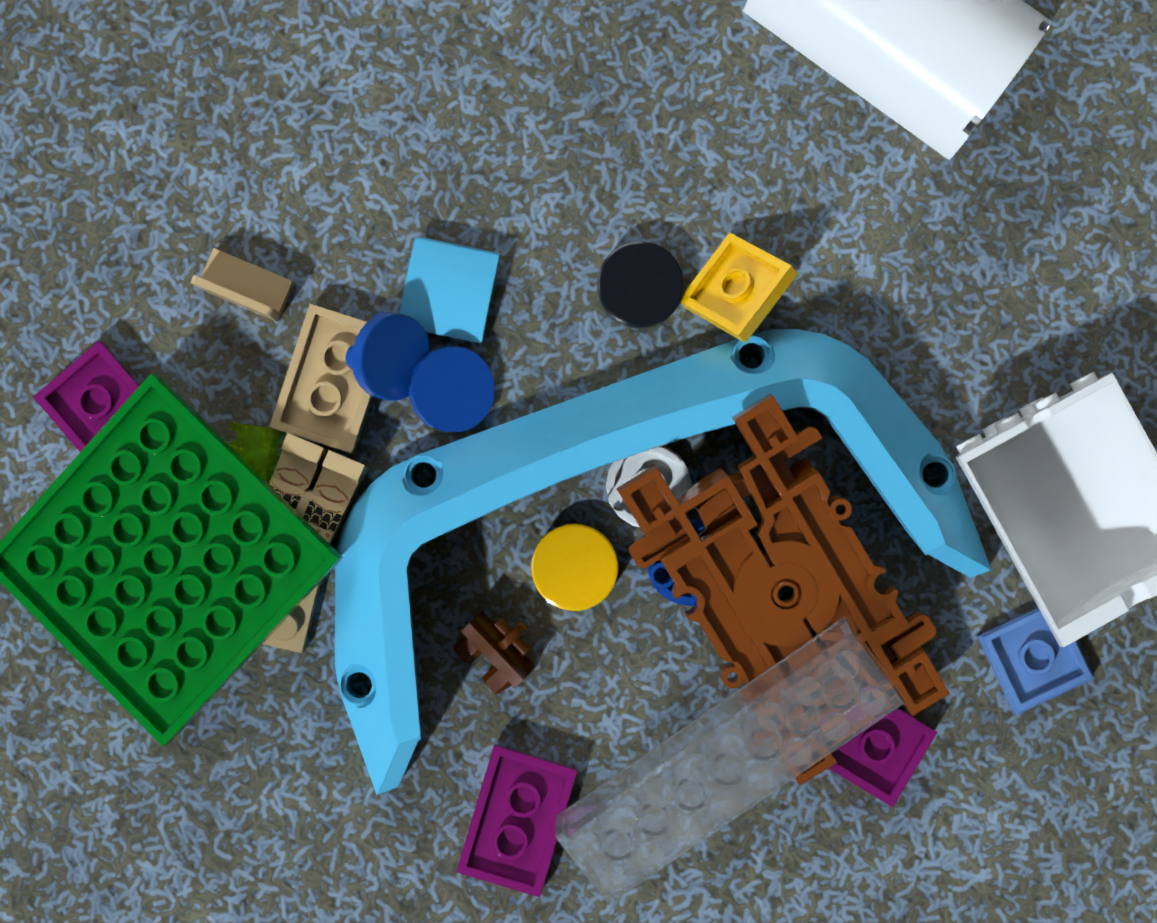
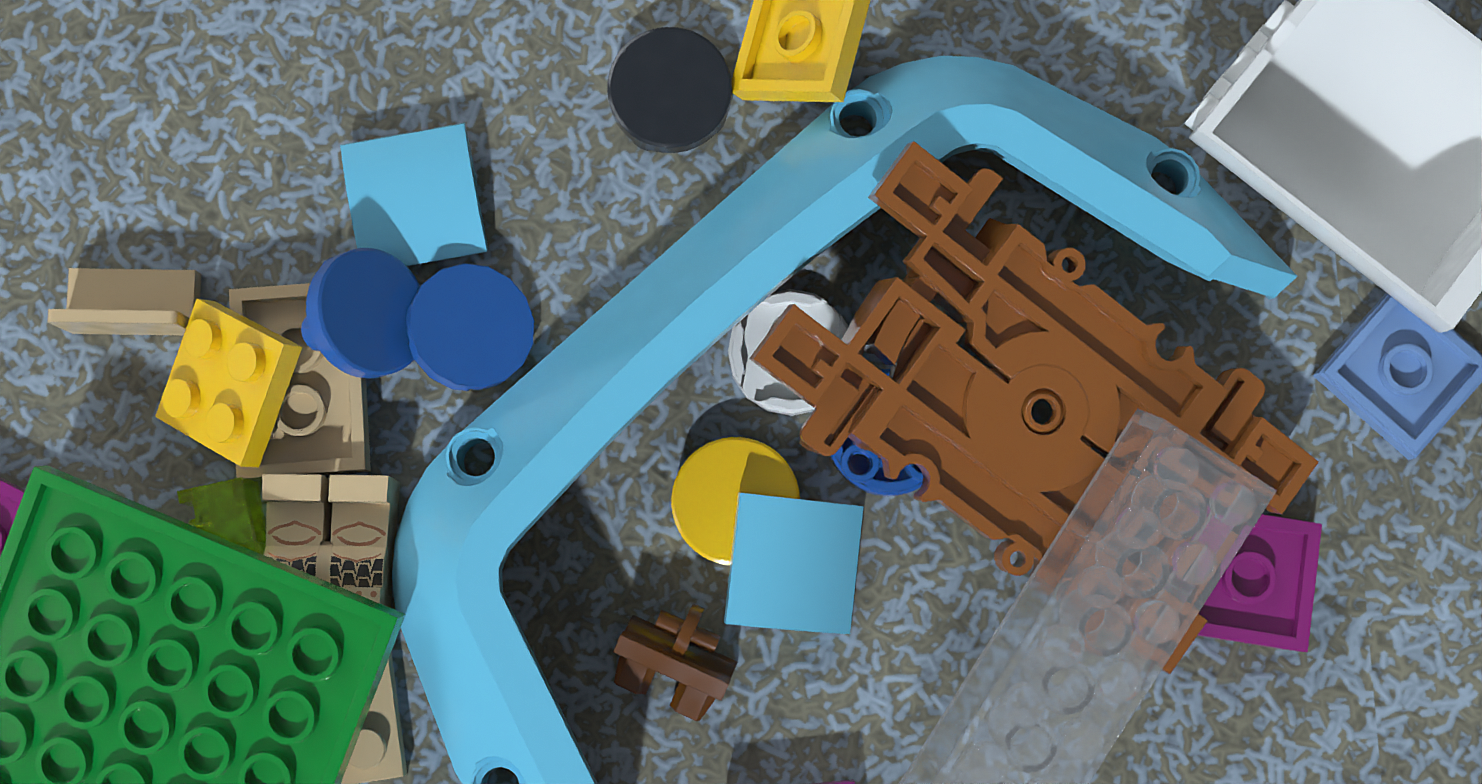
camera: 25 degrees left, 5 degrees down
(287, 364) = (228, 383): none -> yellow plate
(595, 621) = (793, 564): none -> medium azure slope

